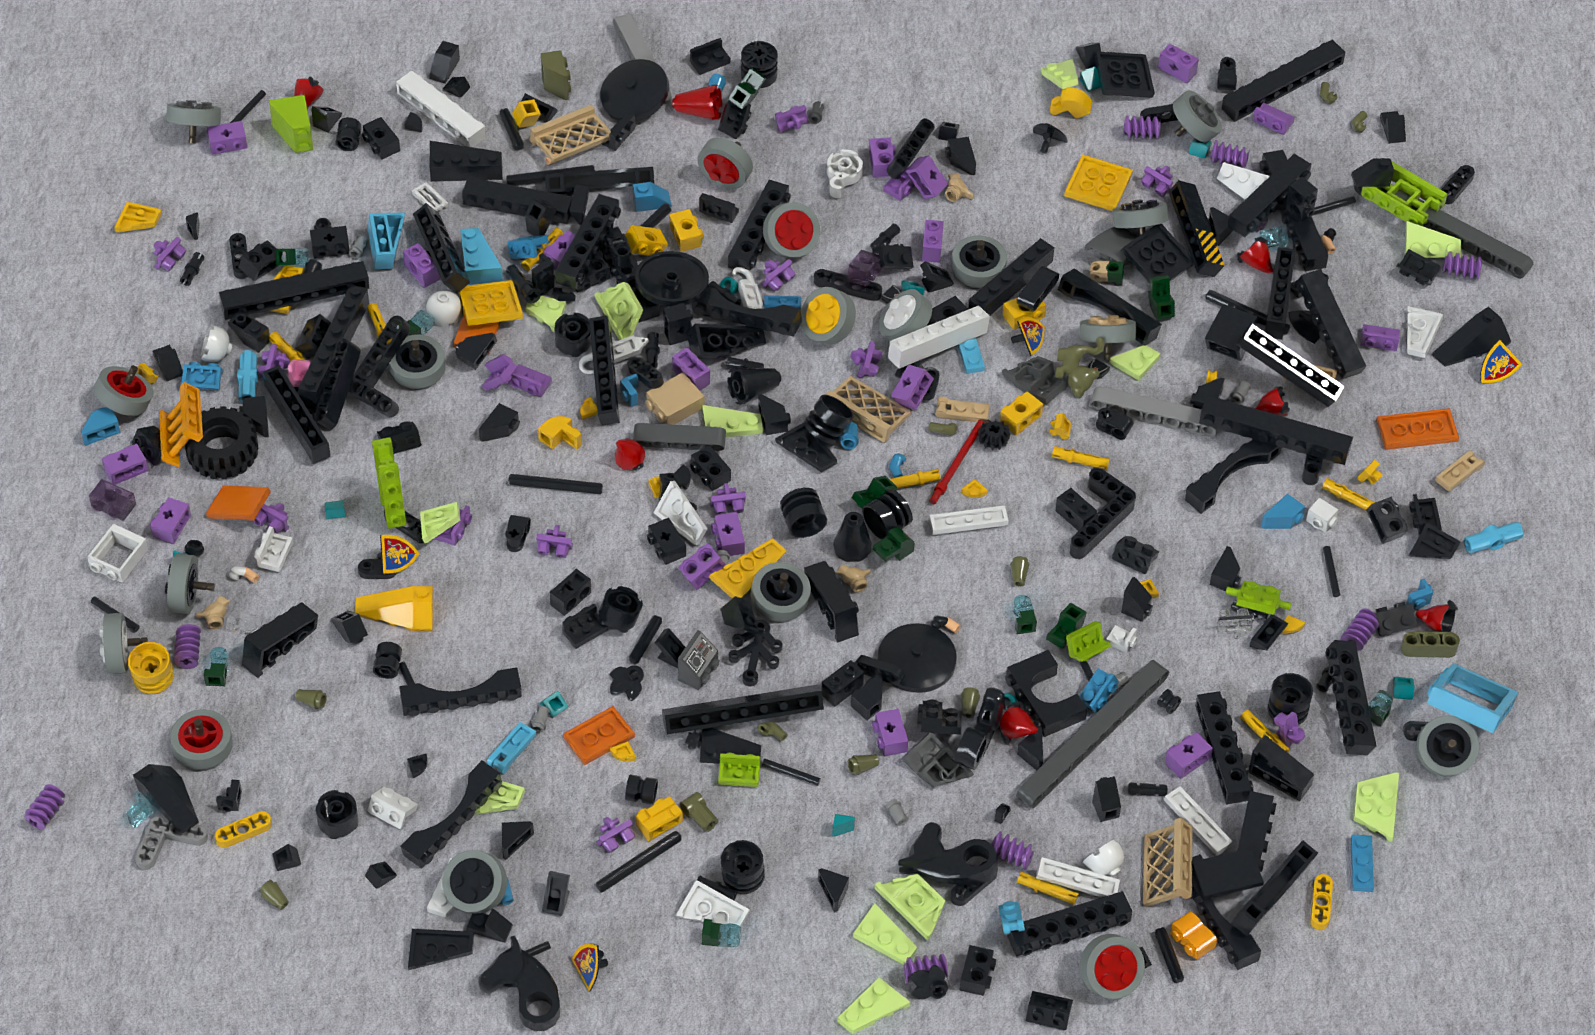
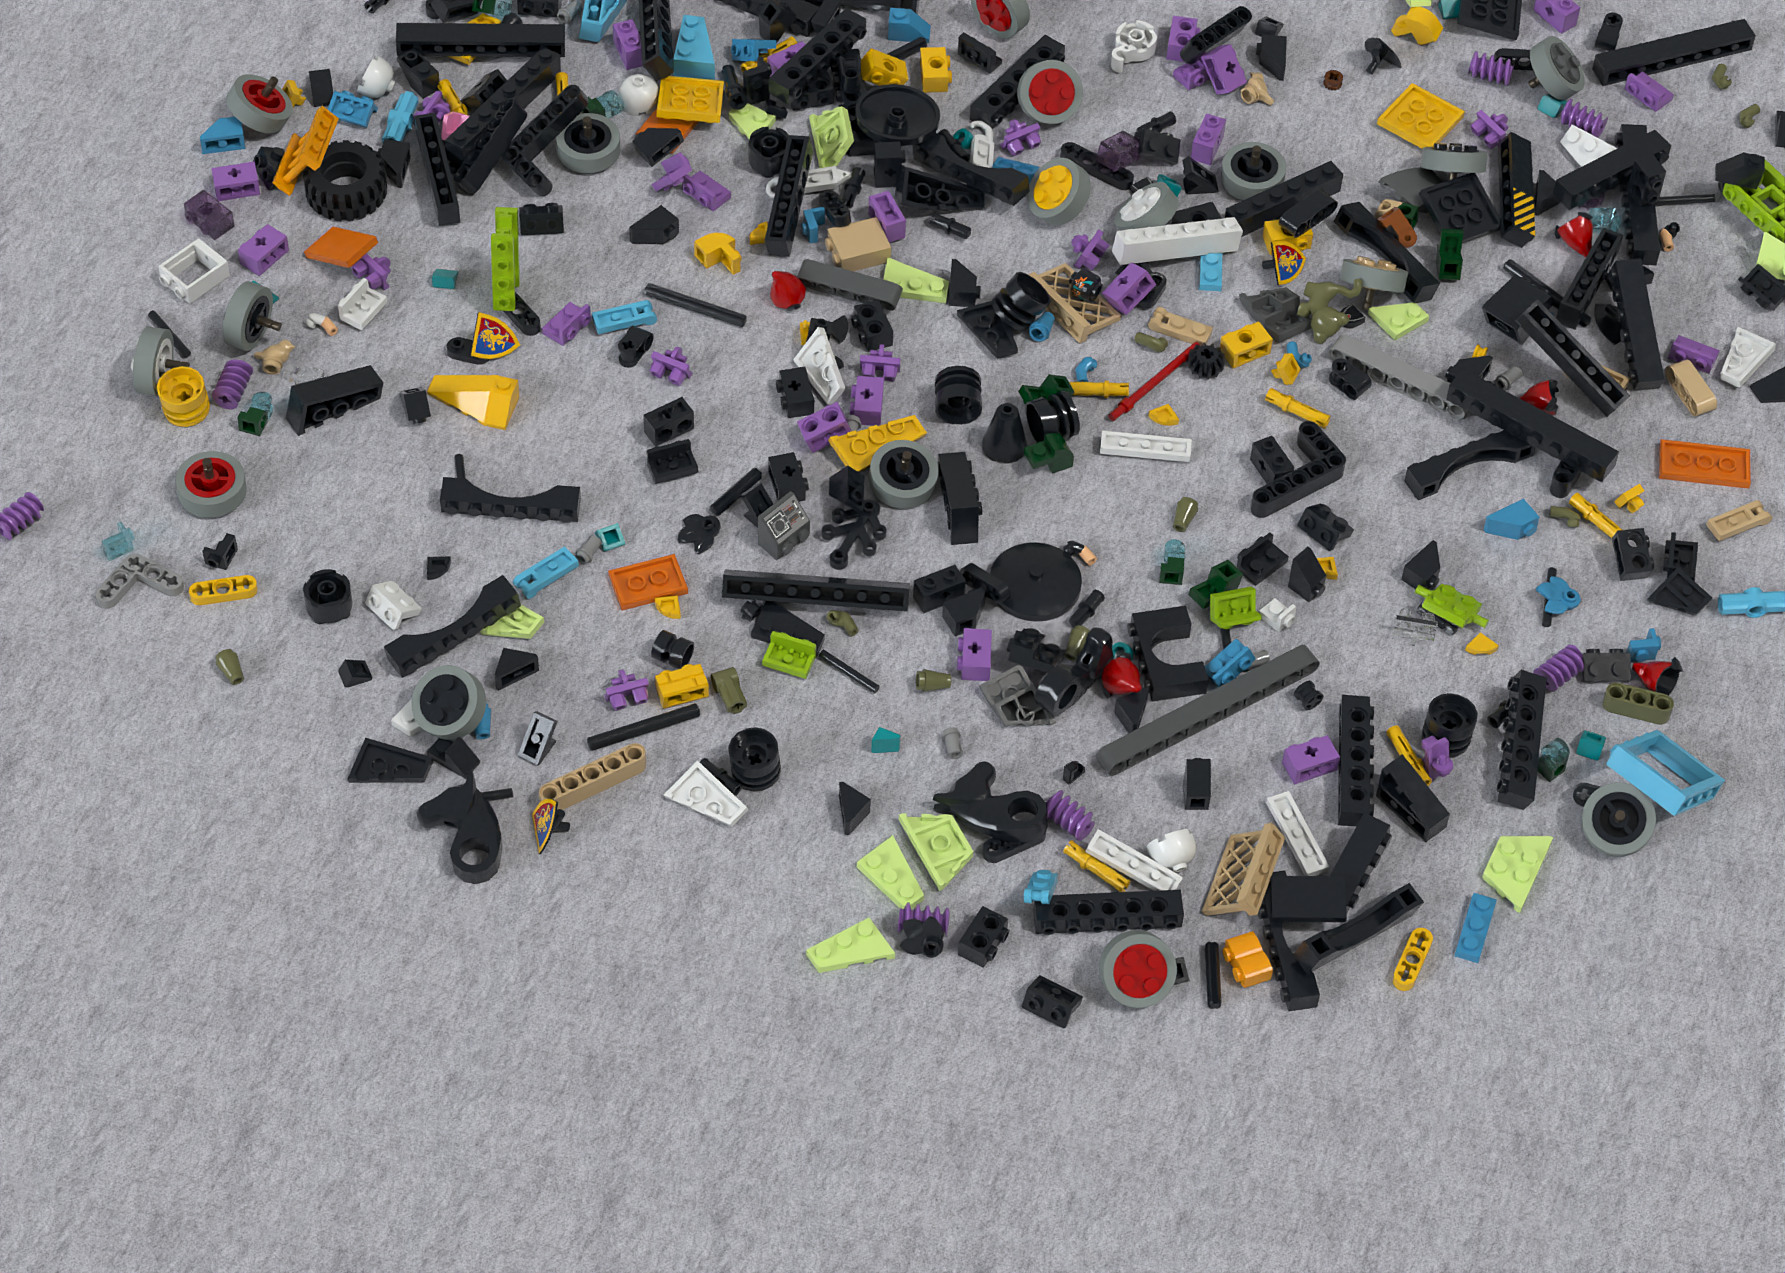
camera: 15 degrees right, 0 degrees up
(167, 794) = (154, 532): black wedge -> none
(194, 547) = (278, 284): black plate -> none
(286, 857) = (259, 631): black slope -> none
(313, 698) = (347, 469): olive cone -> none
(387, 660) = (442, 447): black wheel -> none
(438, 520) = (550, 312): yellowish green wing -> none
(499, 508) = (624, 317): none -> medium azure plate
(617, 908) = (600, 769): none -> tan beam
(620, 608) = (716, 451): black brick -> none
(684, 617) = (786, 476): none -> black brick
(720, 934) = (705, 827): leg -> none
(748, 383) = (949, 243): black cone -> none
(854, 577) = (993, 478): tan animal -> none
(875, 392) = (1085, 284): none -> black head
(967, 671) = (1087, 608): none -> black axle
(1016, 169) = (1330, 77): none -> reddish brown bush
(1071, 415) = (1302, 360): none -> dark azure arm
(1093, 595) = (1261, 559): none -> black bracket
(1114, 282) = (1400, 226): none -> dark orange leg
(1147, 789) = (1250, 786): black axle -> none
(1268, 633) = (1450, 646): black slope -> none
(1313, 497) = (1565, 513): none -> olive arm
(1322, 515) = (1558, 532): white brick -> none
(1340, 568) = (1559, 596): none -> dark azure plate
(1387, 367) = (1691, 387): none -> tan beam

